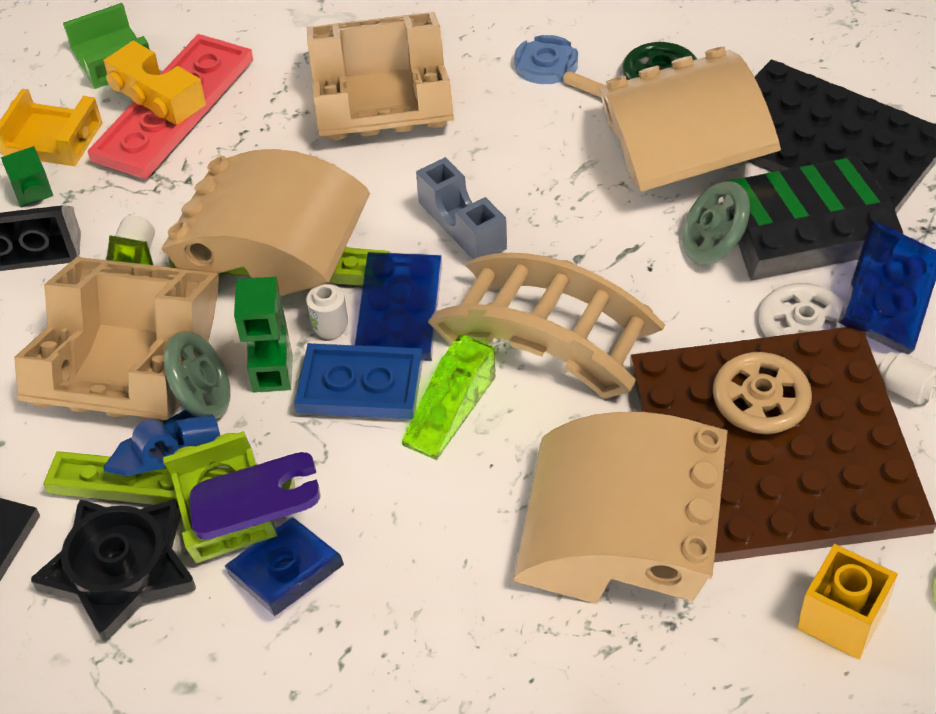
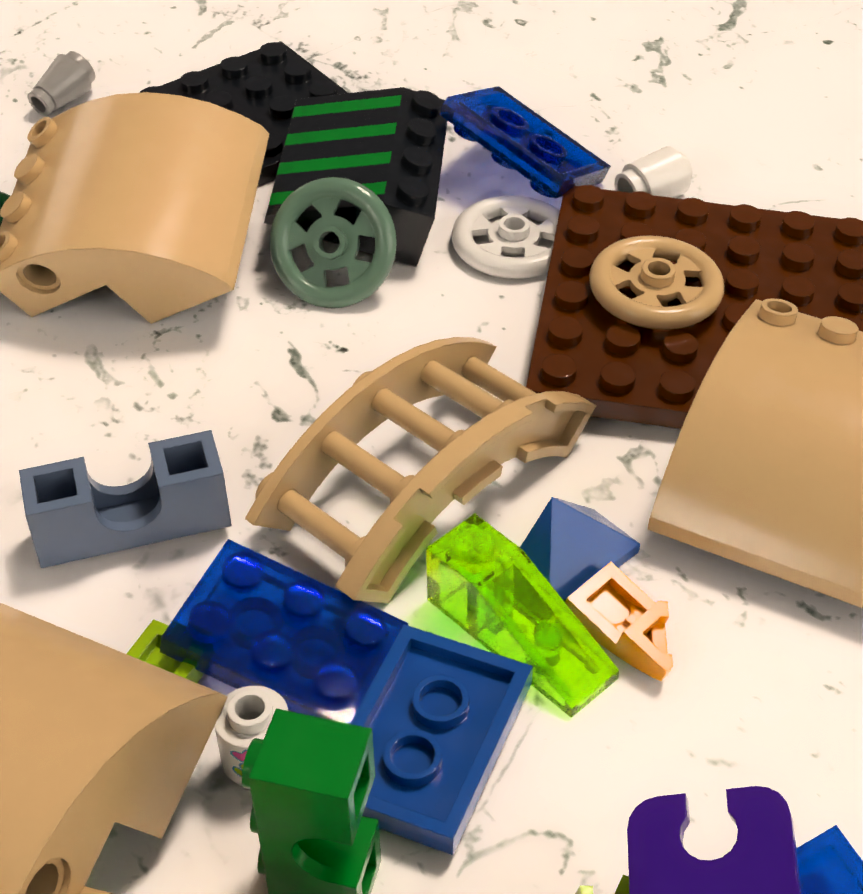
camera: 75 degrees left, 5 degrees down
(474, 450) = (624, 620): none -> slope
(514, 413) = (574, 544): none -> slope
(828, 49) = (63, 82): none -> light grey cone

